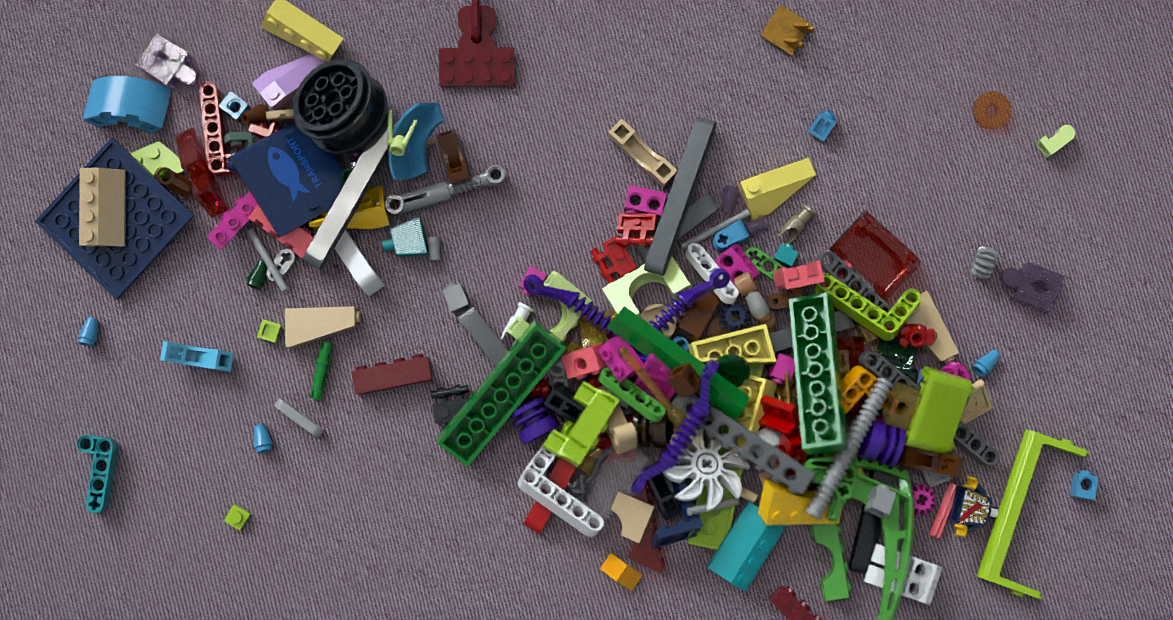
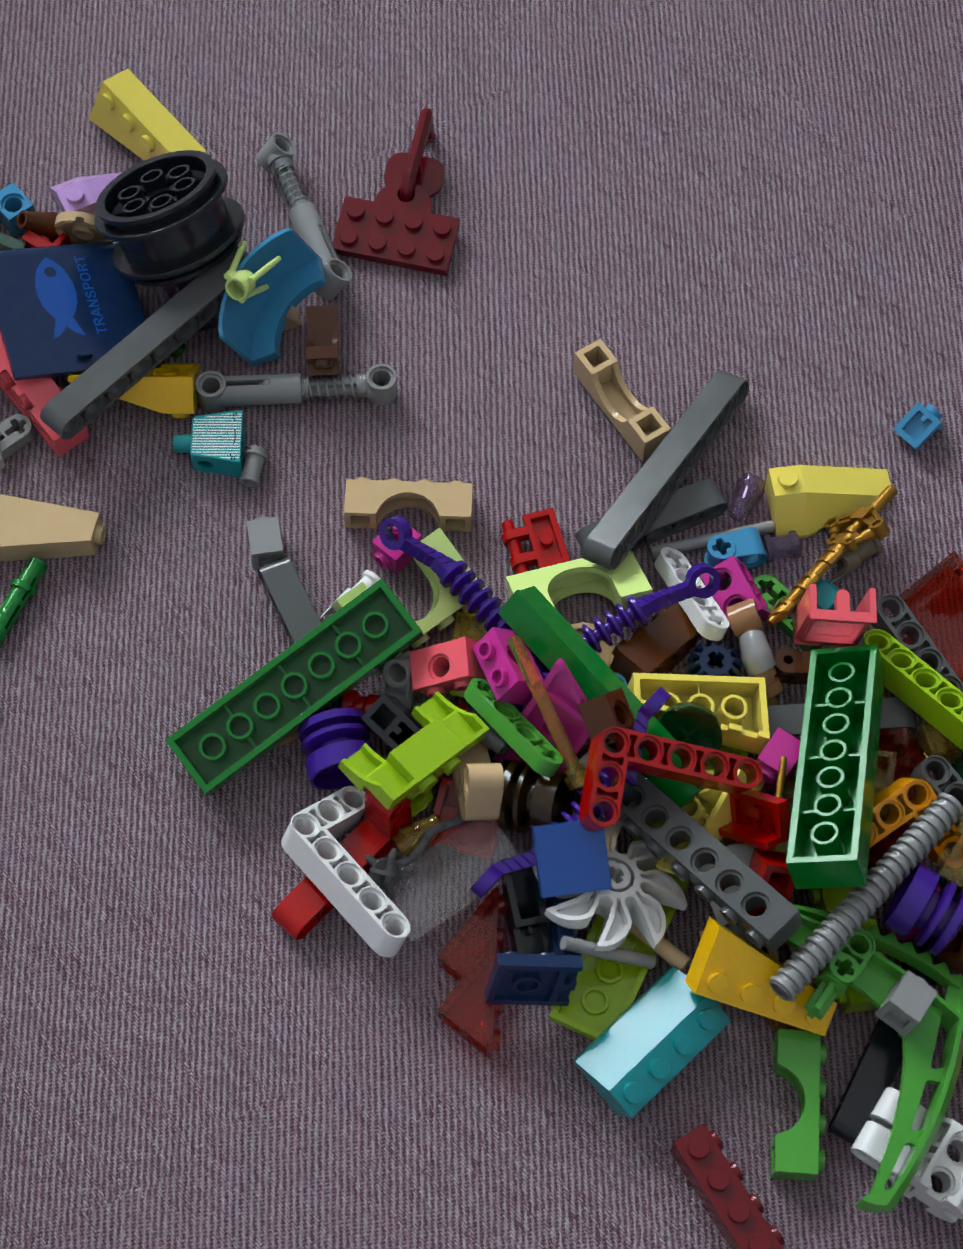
camera: 10 degrees right, 20 degrees down
(358, 265) = (125, 457): white beam -> none
(389, 30) = (277, 158): none -> light grey piece
(392, 375) = (126, 633): dark red brick -> none
(445, 410) = (191, 705): black plate -> none
(508, 256) = (372, 500): none -> tan arch
(621, 571) = (421, 1040): light orange slope -> none
(633, 515) = (465, 937): tan tile -> none
(636, 224) = (582, 494): red plate -> none
(646, 196) = (611, 465): dark pink brick -> none
(683, 466) = (570, 859): none -> blue tile
(720, 405) = (660, 765): none -> red beam
(786, 30) = (887, 286): pearl gold plate -> none
(792, 219) = (844, 534): none -> pearl gold bar

